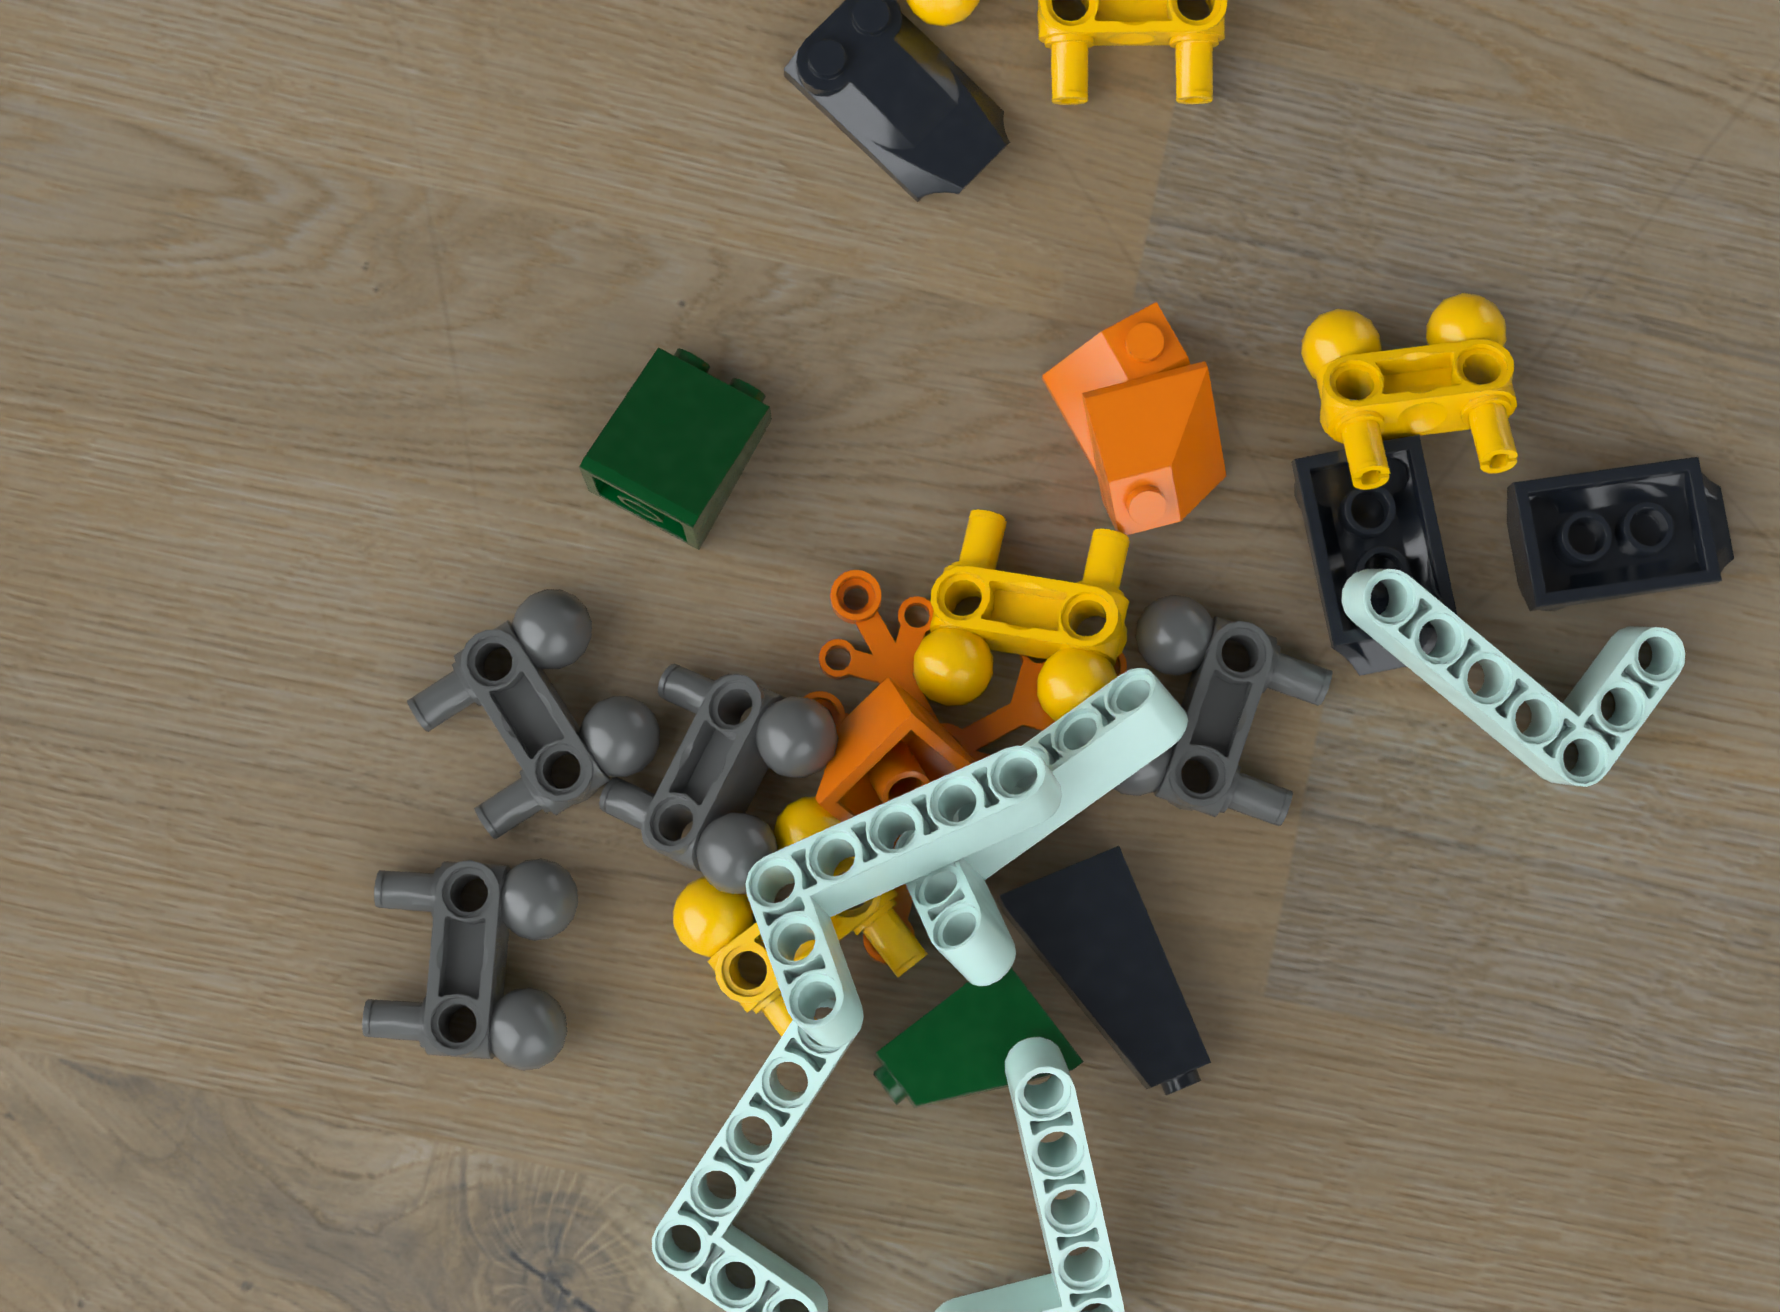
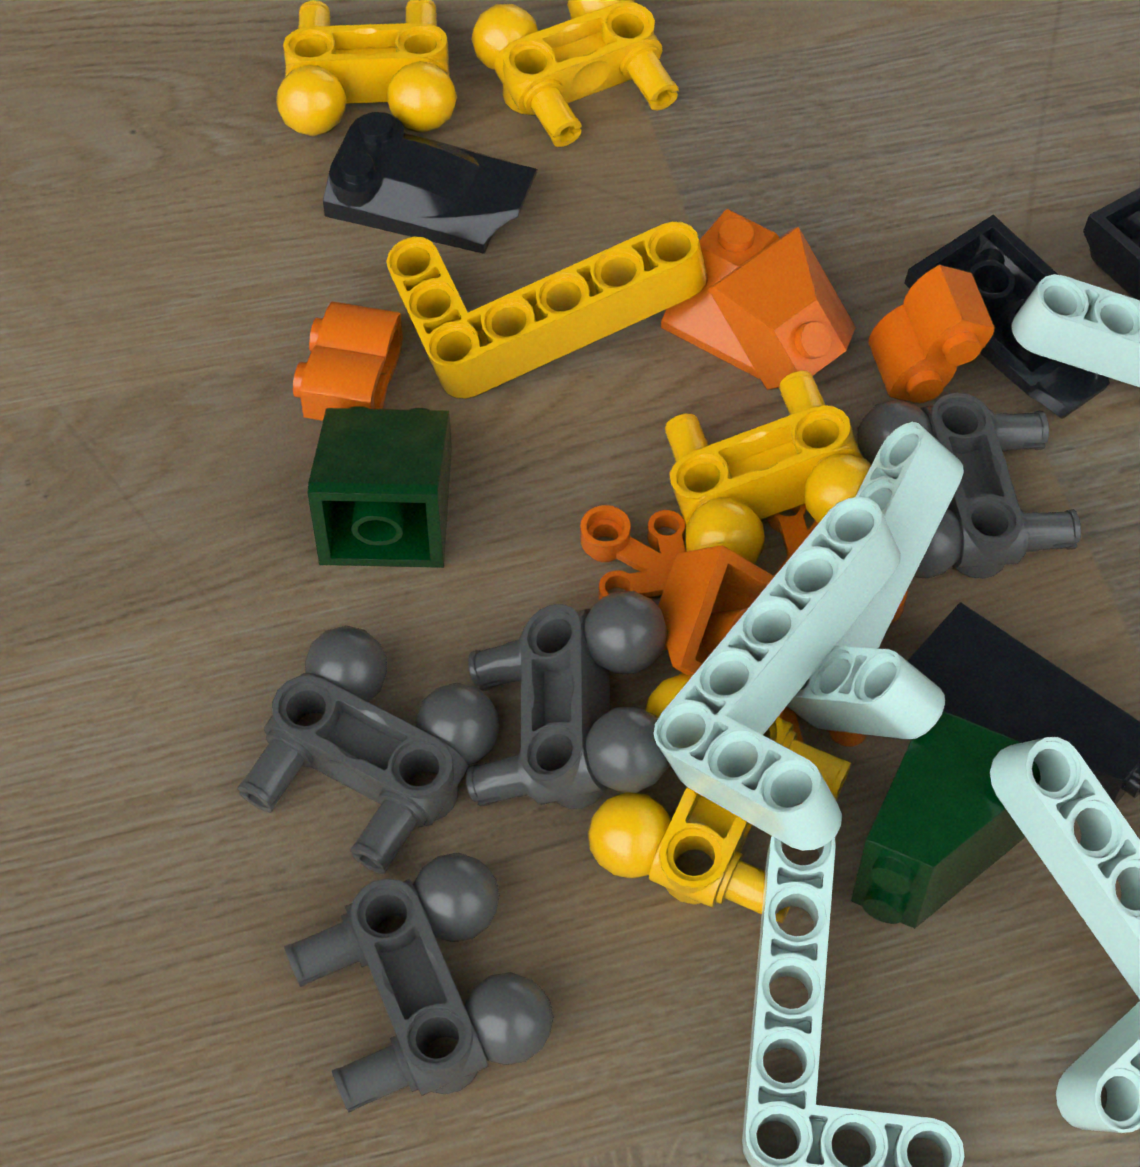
camera: 25 degrees left, 25 degrees down
(714, 289) = (349, 359): none -> orange brick
(910, 327) = (548, 316): none -> yellow beam
(1268, 549) = (931, 334): none -> orange brick
(1414, 387) = (980, 174): yellow piece -> none

